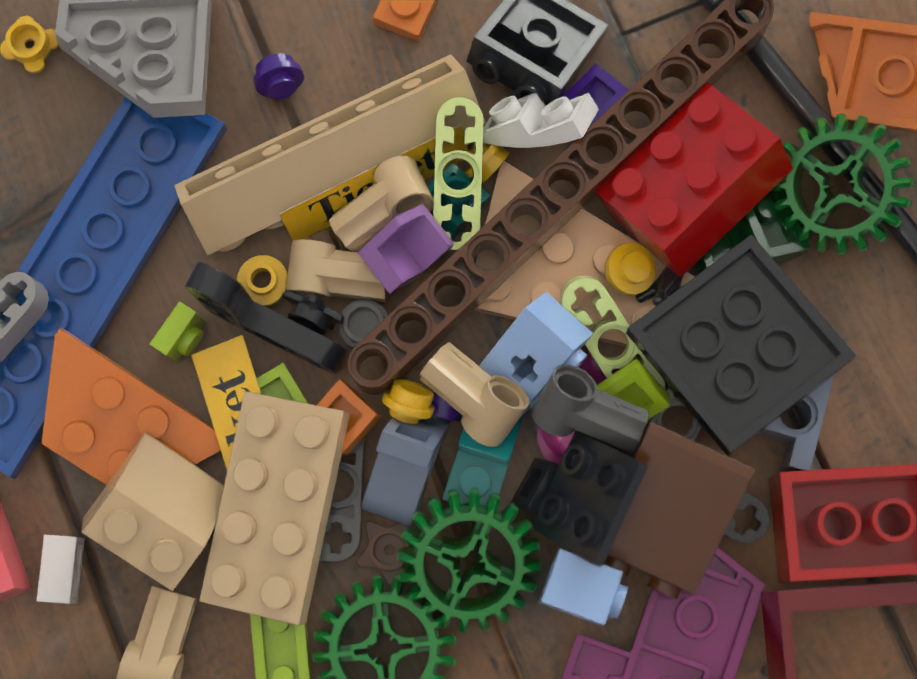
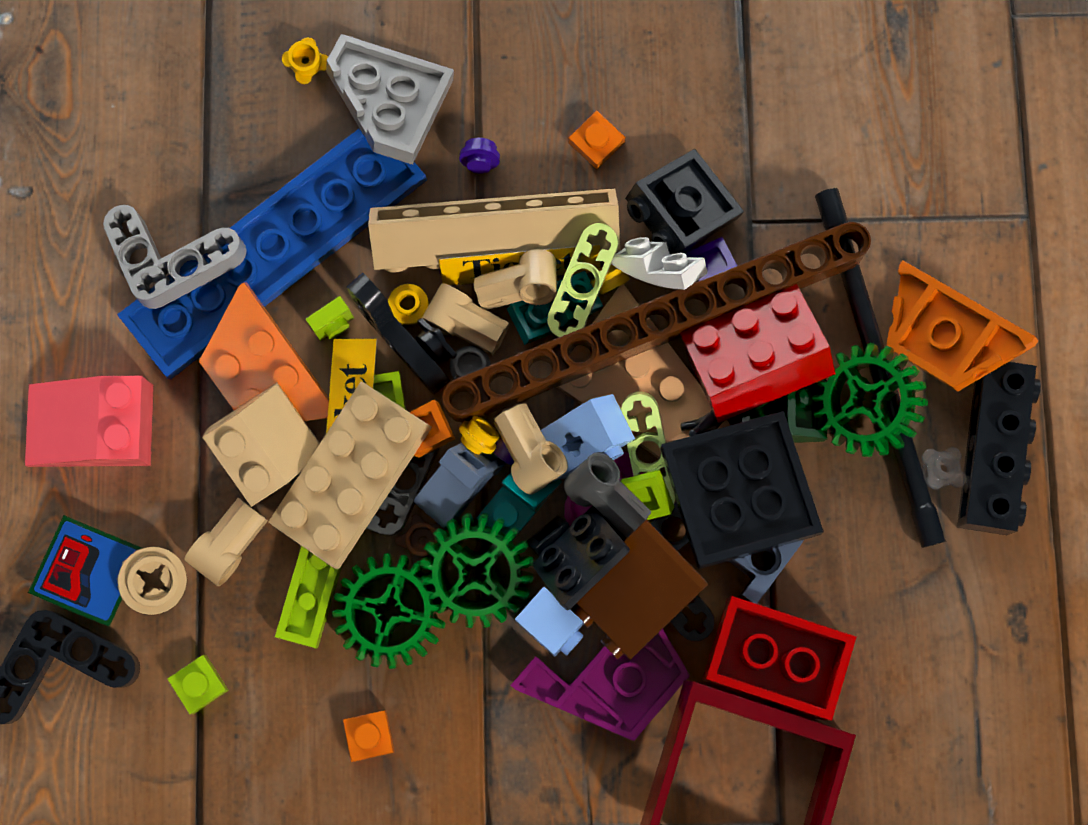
camera: 20 degrees right, 0 degrees up
(60, 569) = (177, 459): white piece -> none
(406, 248) = (521, 321): medium lavender panel -> none
(630, 268) = (684, 401): yellow plate -> none

